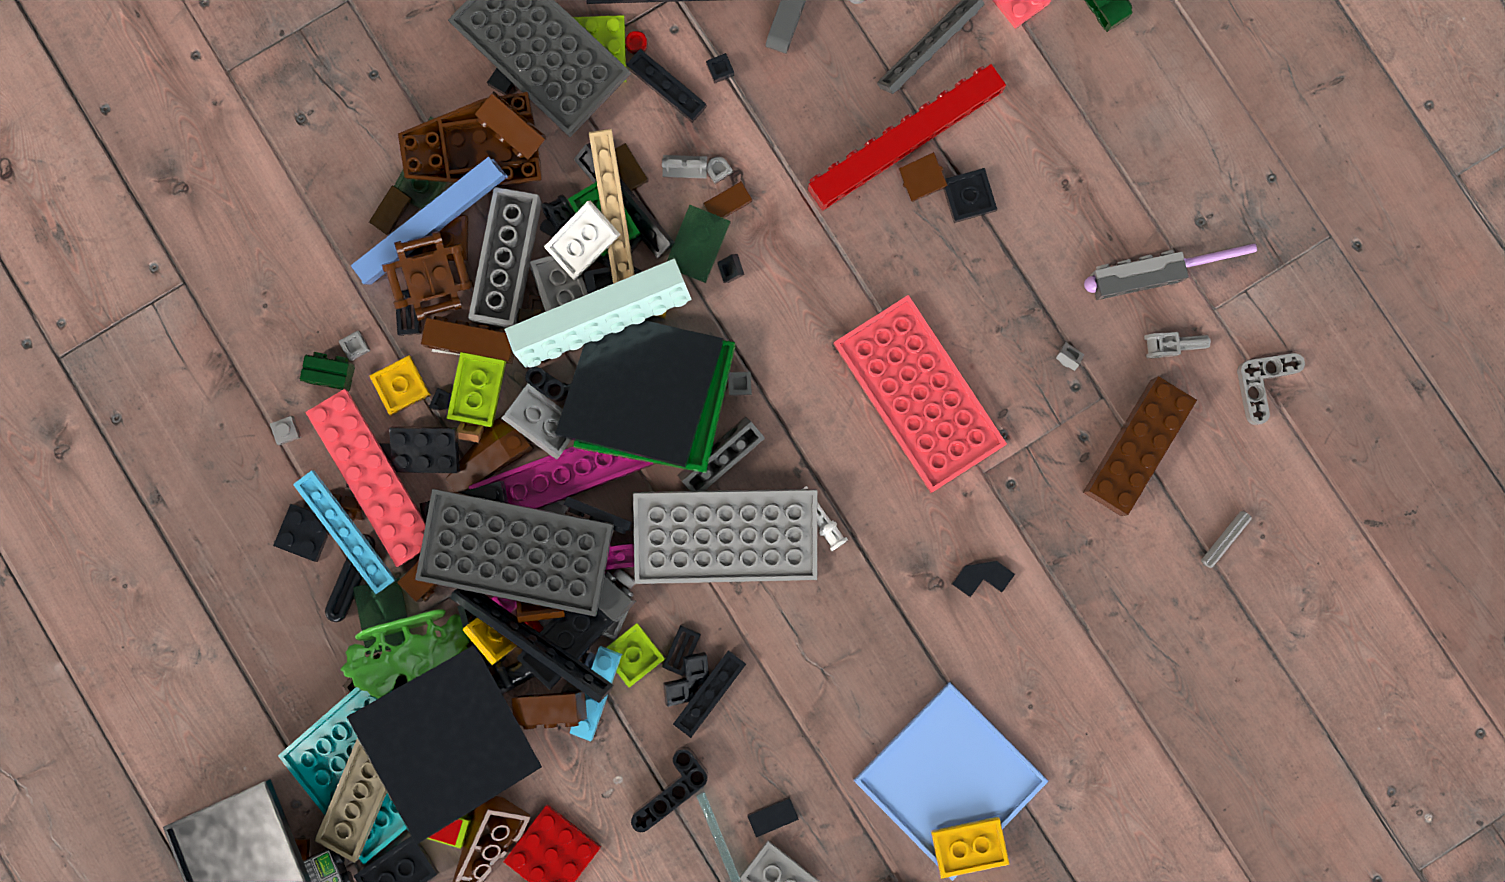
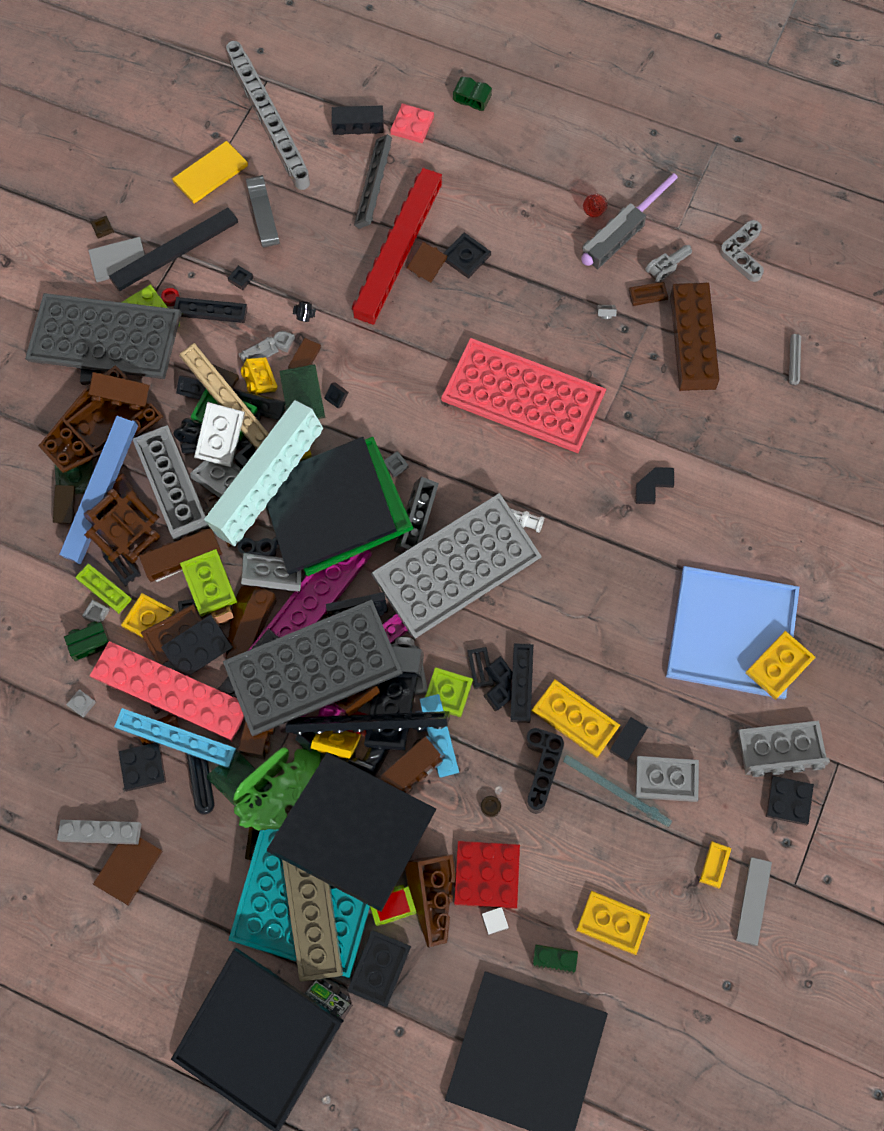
camera: 30 degrees left, 15 degrees down
(225, 571) = (99, 832): none -> light grey plate
(231, 622) = (127, 870): none -> reddish brown tile
(375, 326) = (103, 588): none -> lime plate
(411, 414) = (168, 629): none -> reddish brown tile
(599, 792) = (490, 806): none -> dark brown tile
(667, 195) = (258, 376): none -> yellow bracket
(737, 762) = (575, 718): none -> yellow tile
(759, 151) = (304, 311): none -> black gear
(1128, 364) = (648, 293): none -> reddish brown tile
(1144, 227) = (590, 207): none -> clear red head

